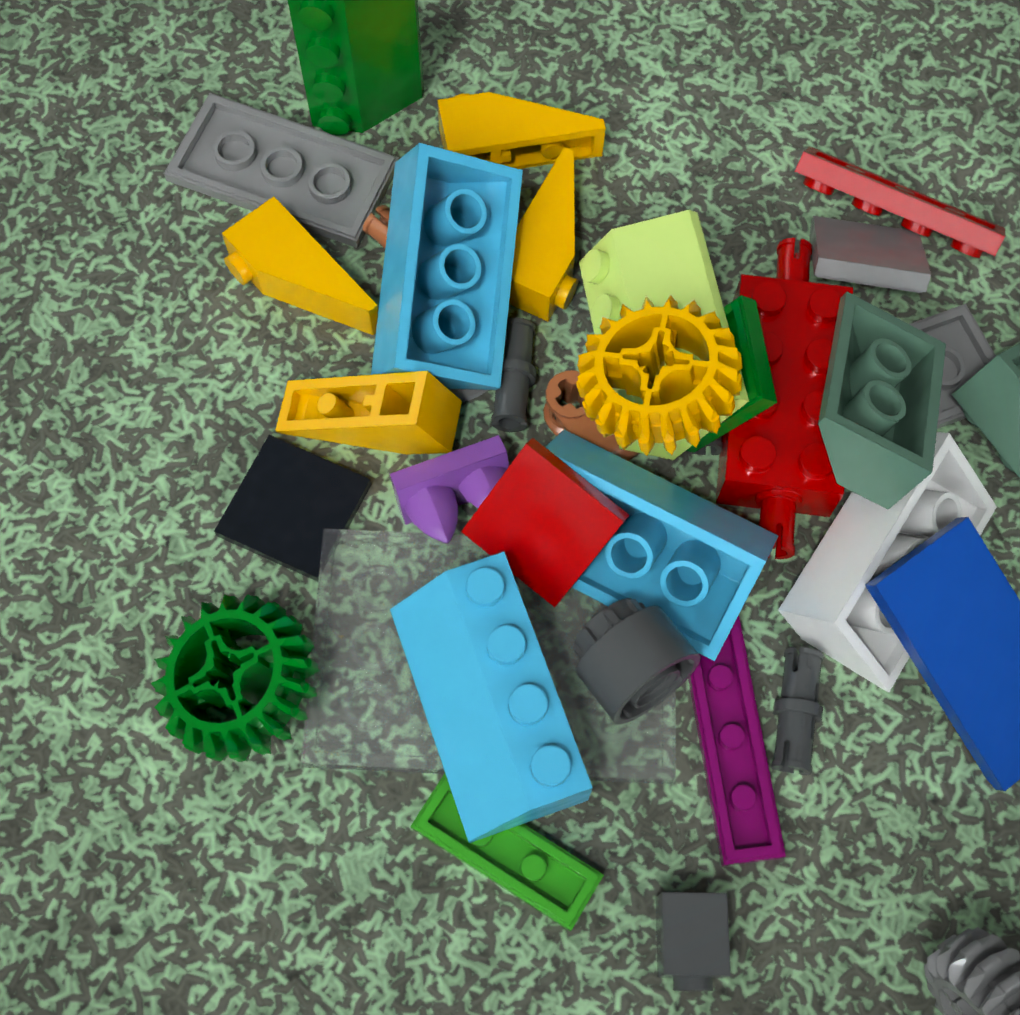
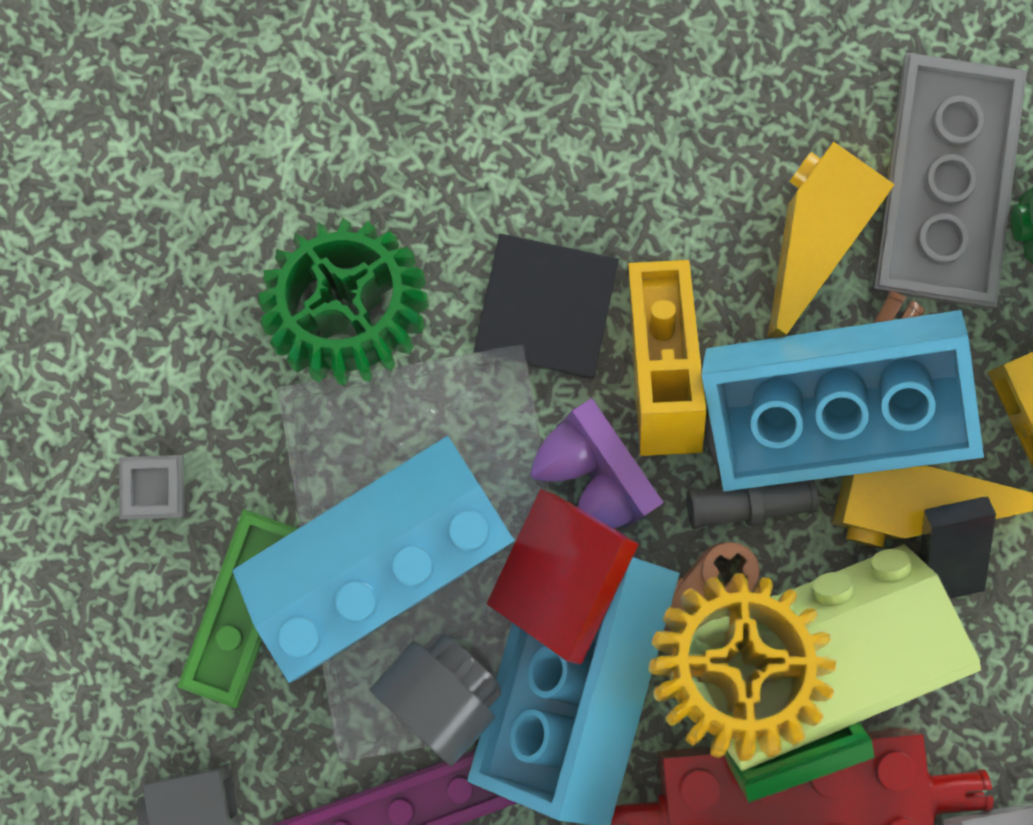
camera: 80 degrees right, 15 degrees up
(365, 917) = (151, 487): none -> light grey tile
(583, 211) = (959, 544): none -> black tile

